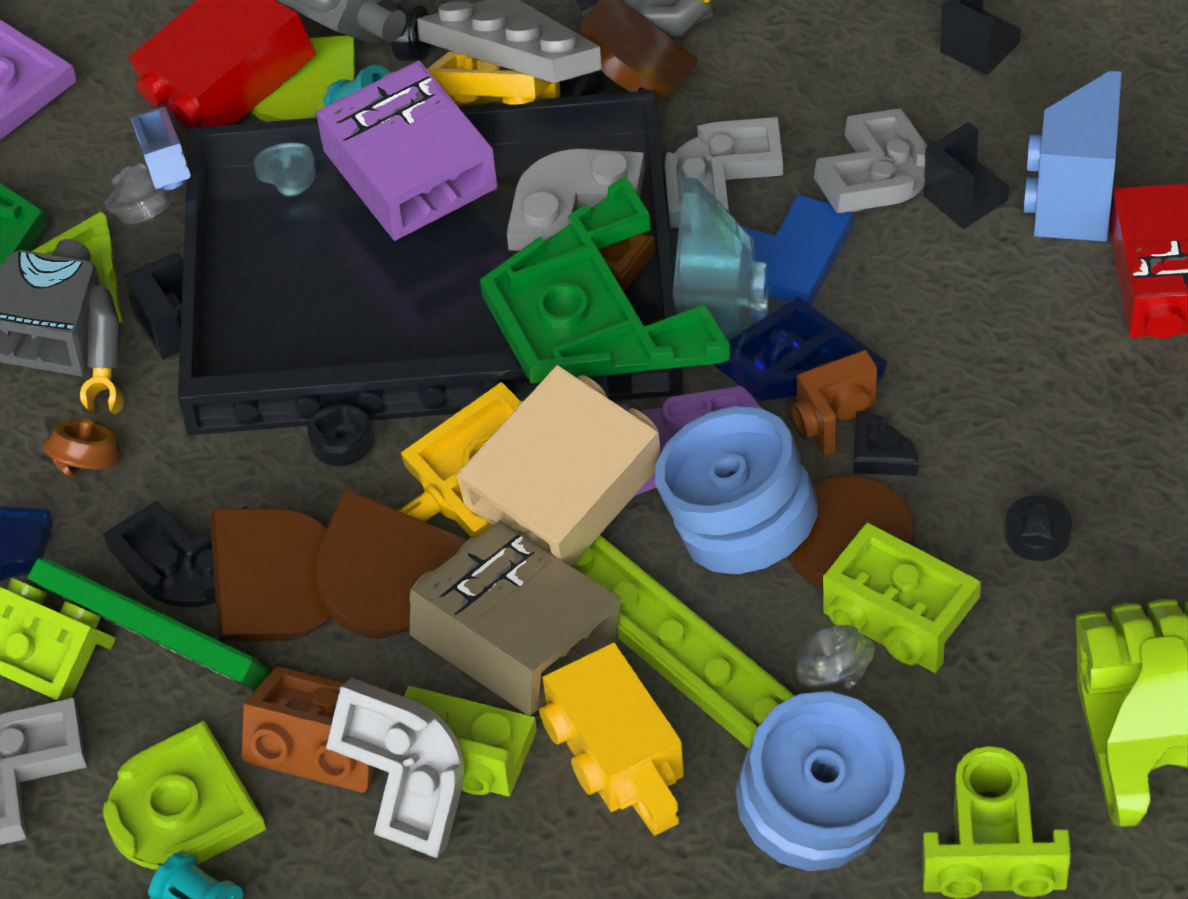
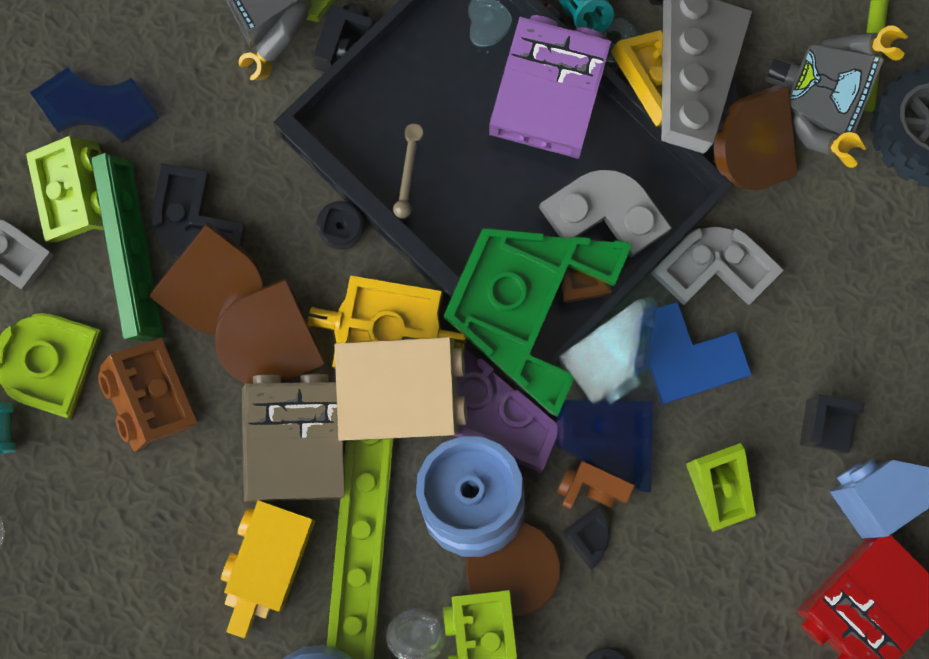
camera: 35 degrees right, 30 degrees up
(81, 446) = (210, 91): dark orange hat -> none
(325, 296) = (413, 135): none -> dark tan hinge
(417, 753) = (148, 486): plate -> none
(489, 737) = (198, 475): lime bracket -> none
(883, 169) = (799, 372): light grey plate -> none
(936, 295) = (723, 486): none -> lime slope

